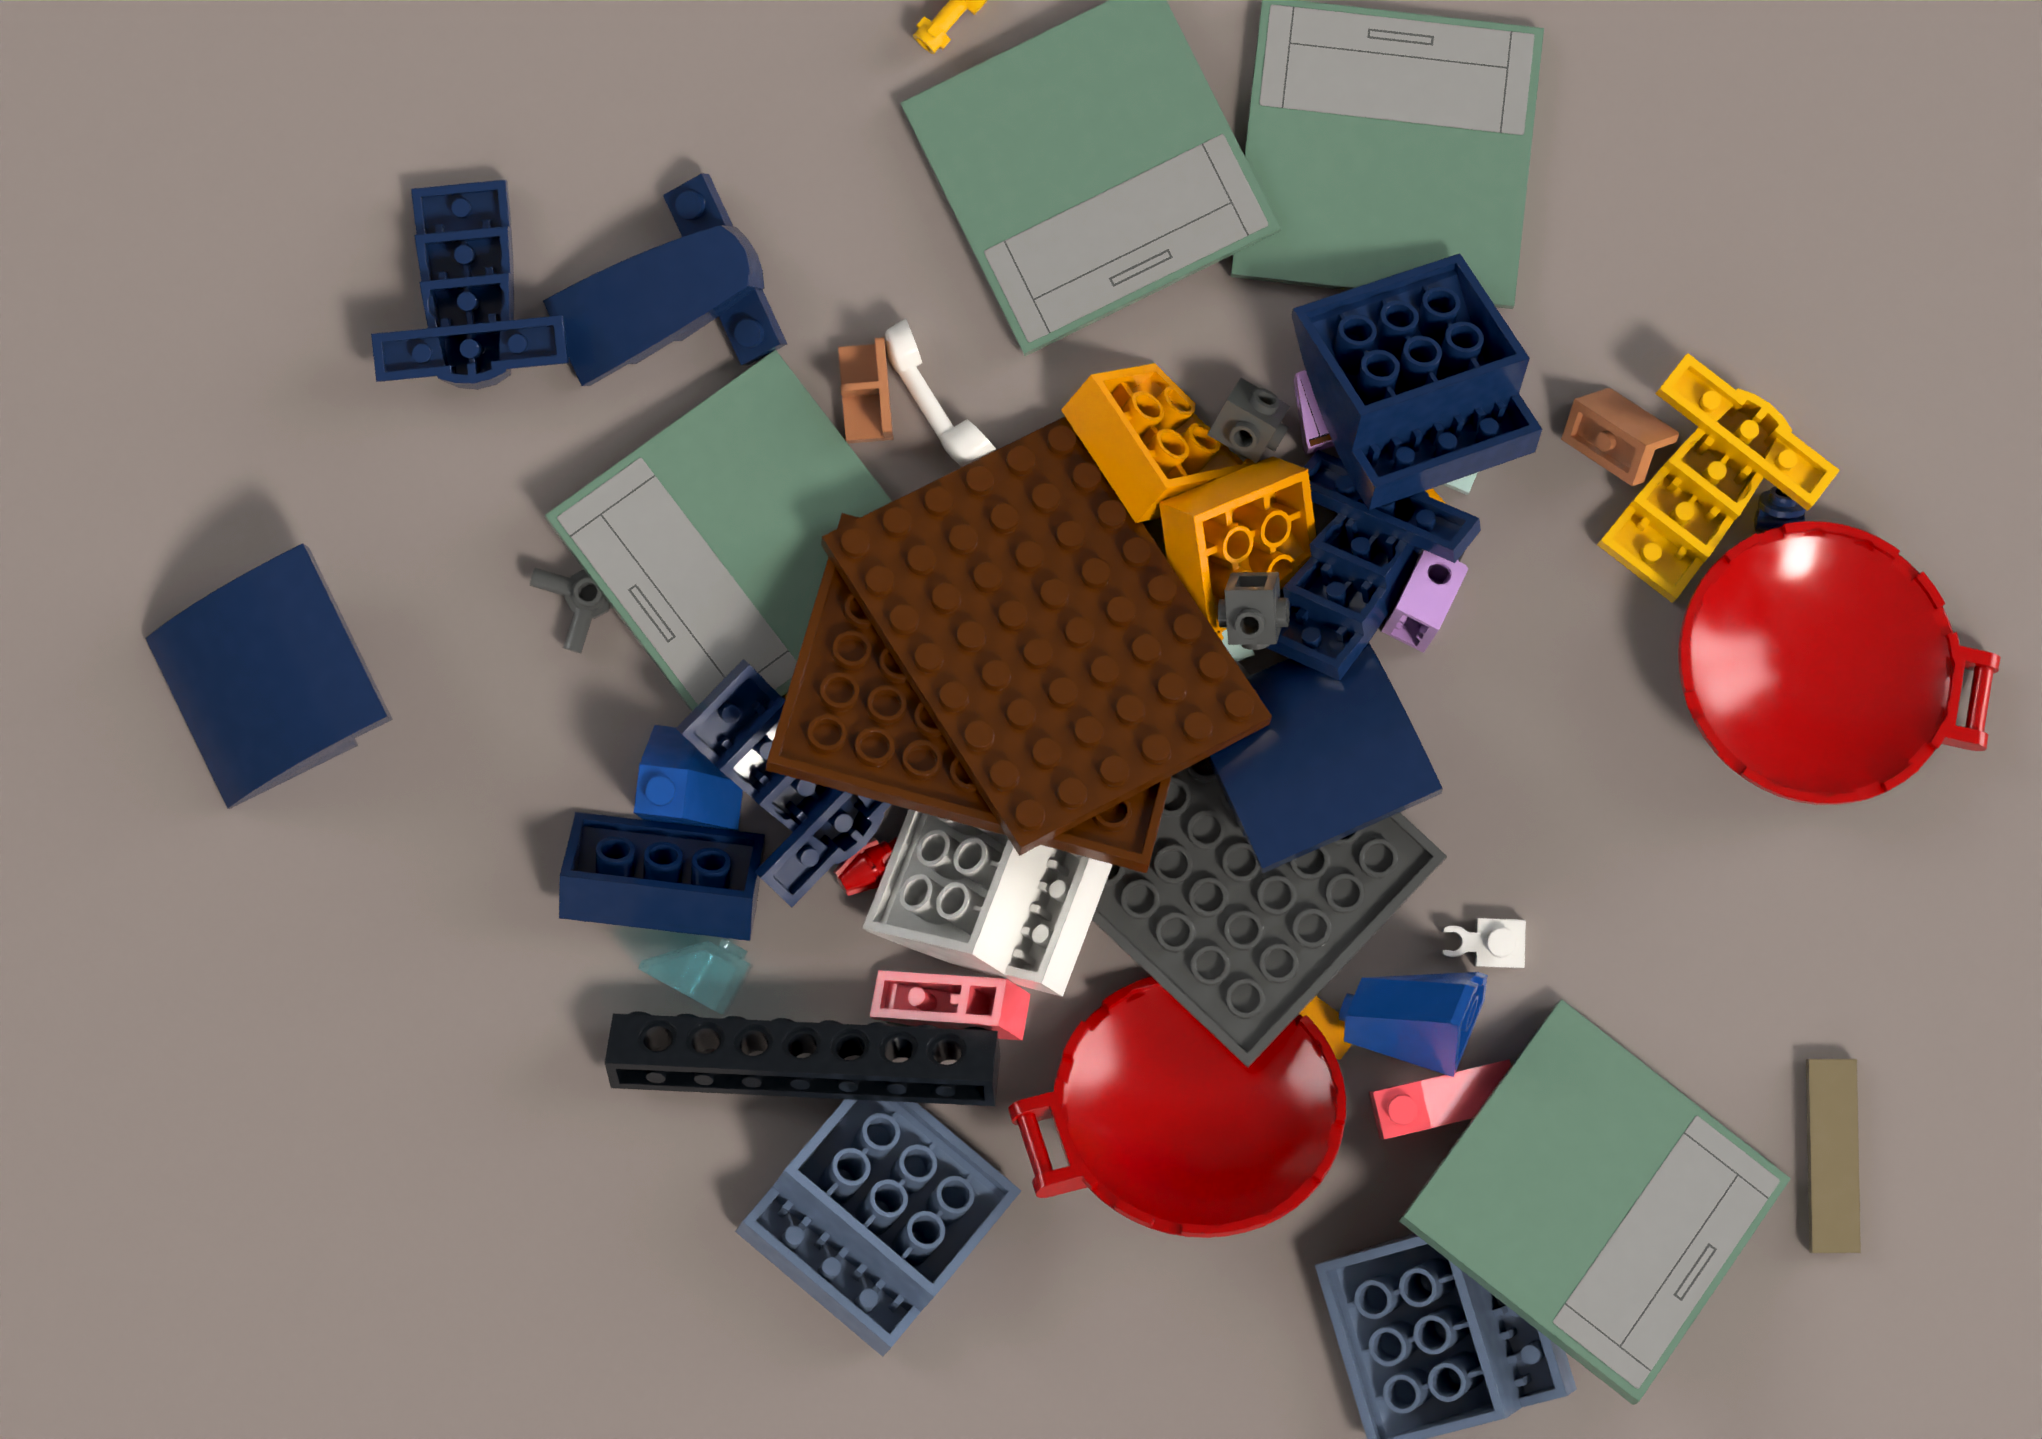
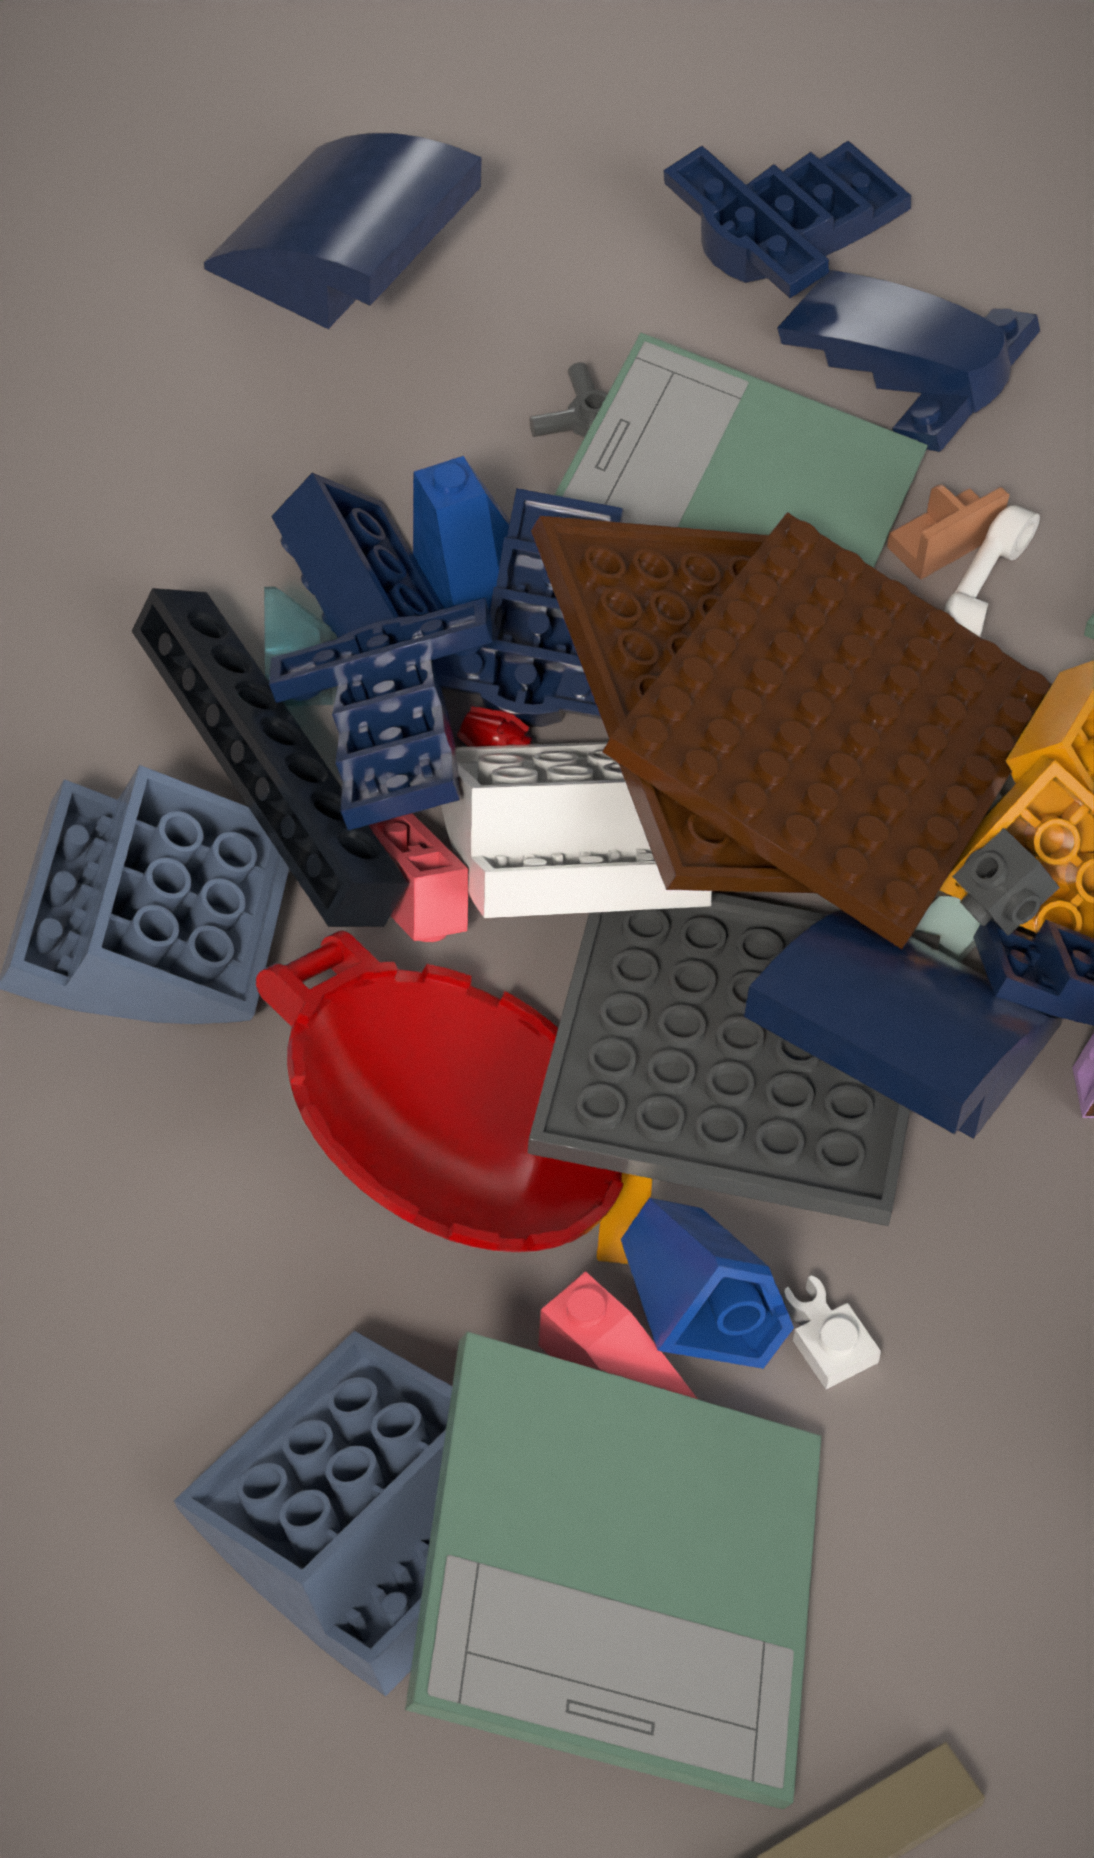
camera: 55 degrees right, 30 degrees down
(838, 956) = (389, 707): none -> dark blue slope

